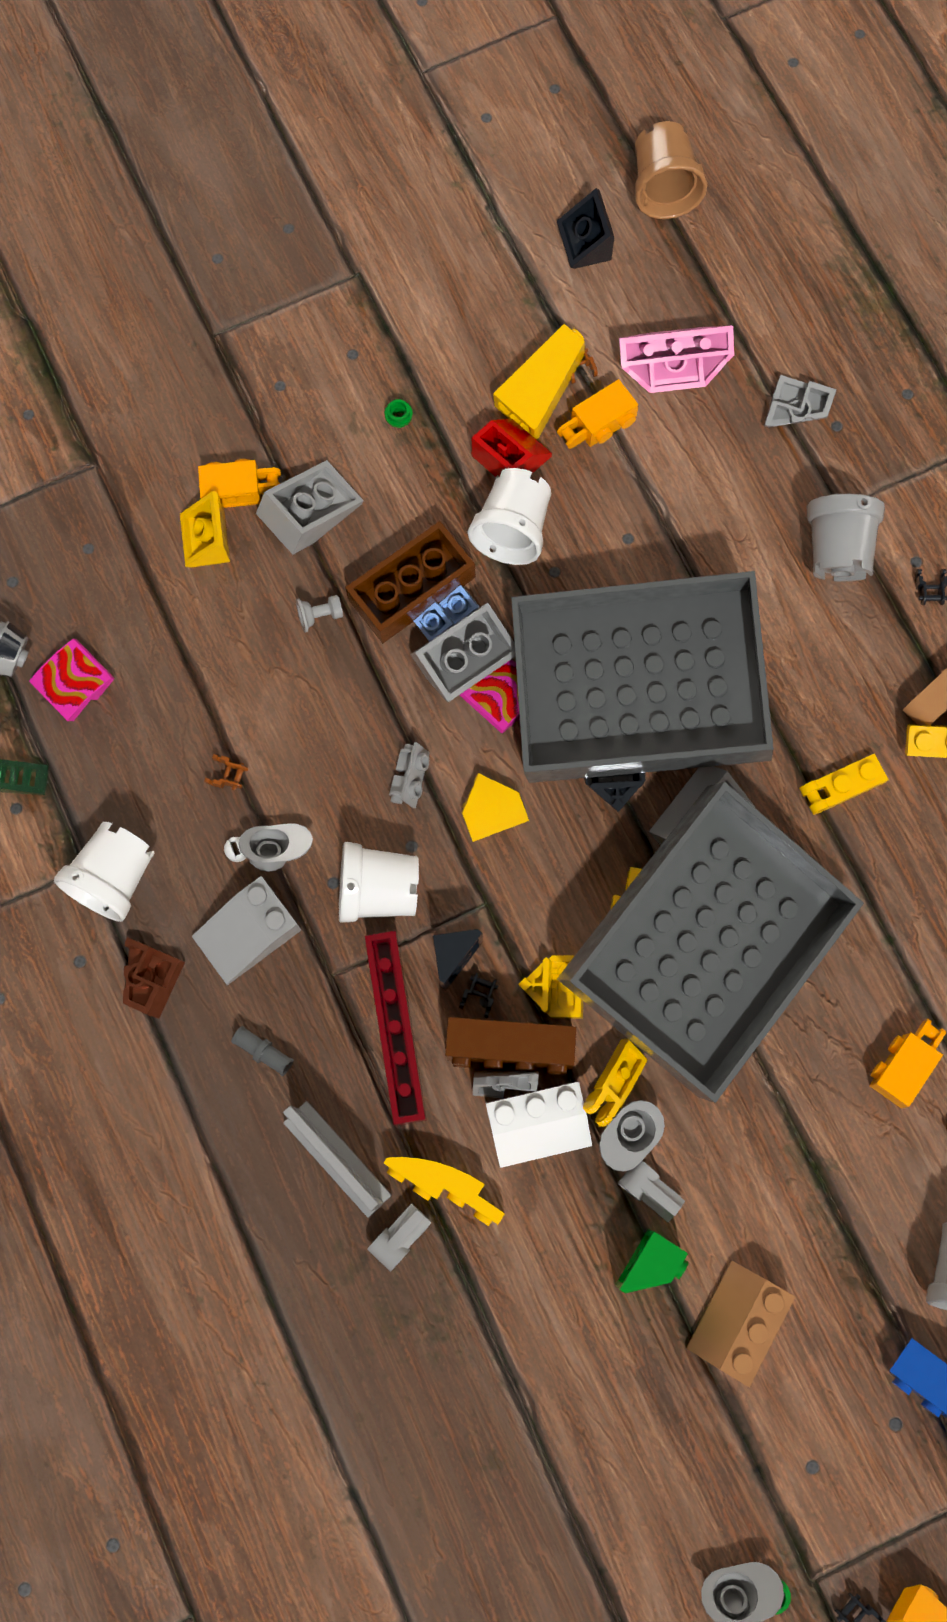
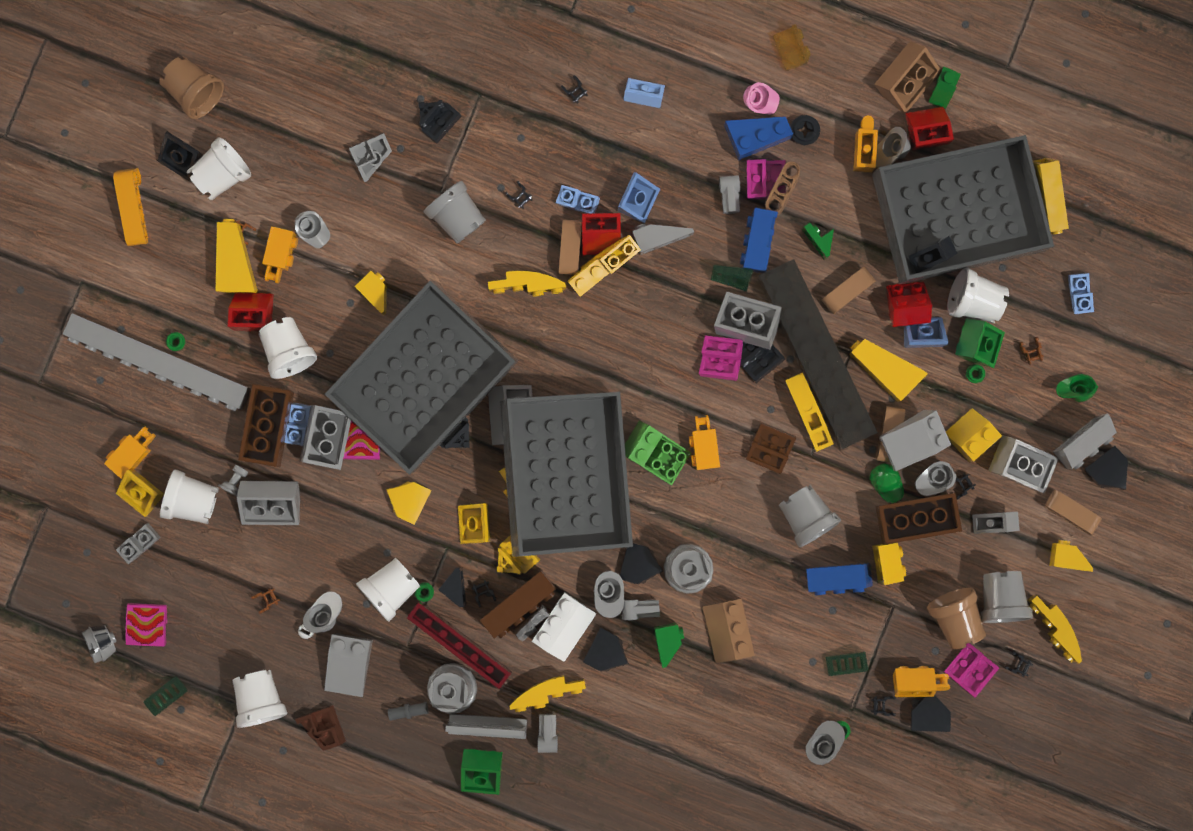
camera: 45 degrees left, 10 degrees up
(149, 587) = (138, 543): none -> light grey slope
(249, 580) = (188, 499): none -> white piece
(278, 1206) = (481, 771): none -> green slope
(307, 506) = (177, 431): light grey slope -> none
(333, 669) = (269, 503): none -> light grey slope
(338, 1073) = (452, 688): none -> light grey piece
(359, 417) = (156, 361): none -> light grey brick
(414, 762) = (351, 512): light grey hinge -> none
(415, 920) = (429, 596): none -> green plate
(499, 213) = (130, 206): none -> light orange beam
(544, 903) = (474, 523): none -> yellow slope
(562, 1204) = (606, 652): none -> black slope
(615, 1082) = (581, 576): yellow hinge -> none
(616, 273) = (218, 169): none -> white piece
(661, 421) = (312, 229): none -> light grey piece
(669, 544) = (374, 290): none -> yellow slope
(677, 357) = (287, 186): bright pink wedge -> none
(699, 1135) = (639, 565): none -> black slope
(756, 1197) = (688, 568): none -> light grey piece
(839, 1018) = (655, 452): none -> bright green slope
(844, 784) = (562, 335): yellow plate -> none
(867, 694) = (535, 283): none -> yellow slope
(885, 1527) = (864, 666): none -> clear green slope
(909, 428) = (437, 119): none -> black slope

